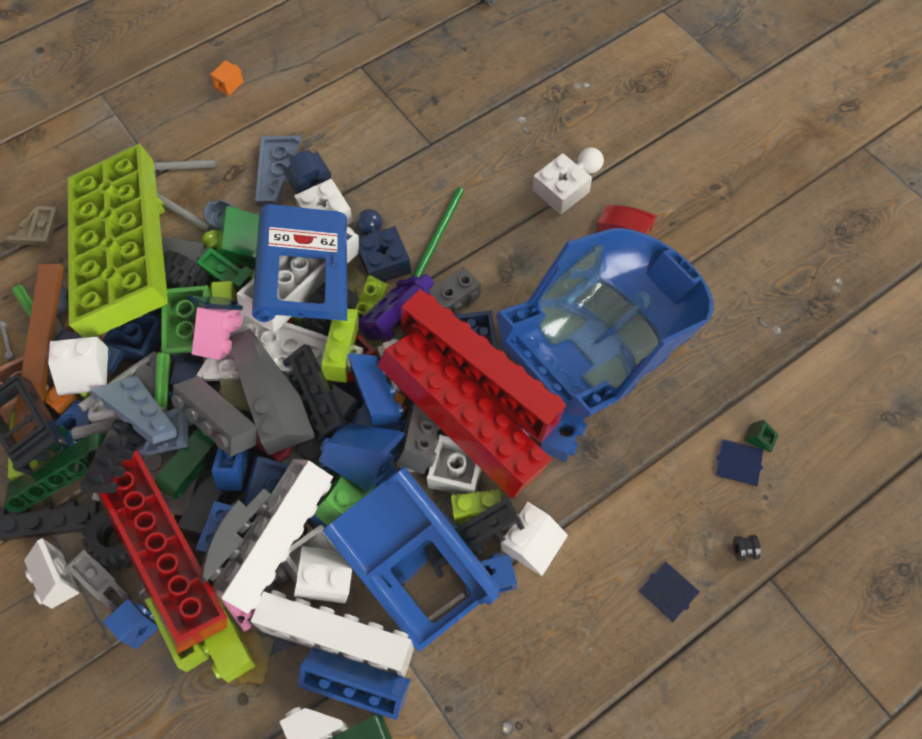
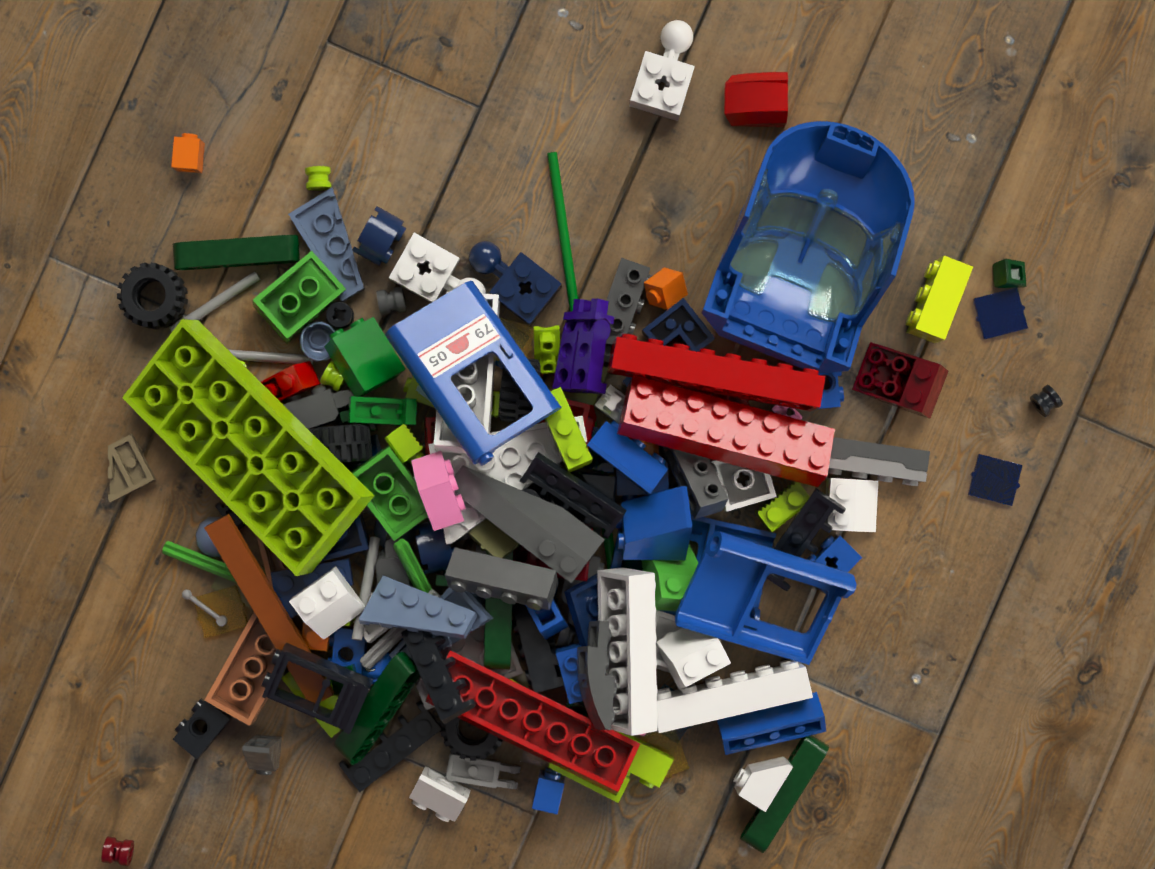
camera: 35 degrees left, 25 degrees up
(139, 128) = (132, 289): none -> black tyre
(183, 226) = (292, 381): none -> red slope
(212, 142) = (236, 252): none -> dark green beam
(215, 302) = (419, 466): piece -> none
(228, 180) = (298, 297): none -> bright green slope
(247, 203) = (343, 318): none -> black wheel
(296, 126) = (318, 178): none -> lime wheel
(482, 301) = (665, 288): none -> orange brick
(574, 514) = (879, 460): none -> piece
(631, 466) = (900, 379): none -> dark red slope
(692, 416) = (938, 299): none -> neon yellow brick

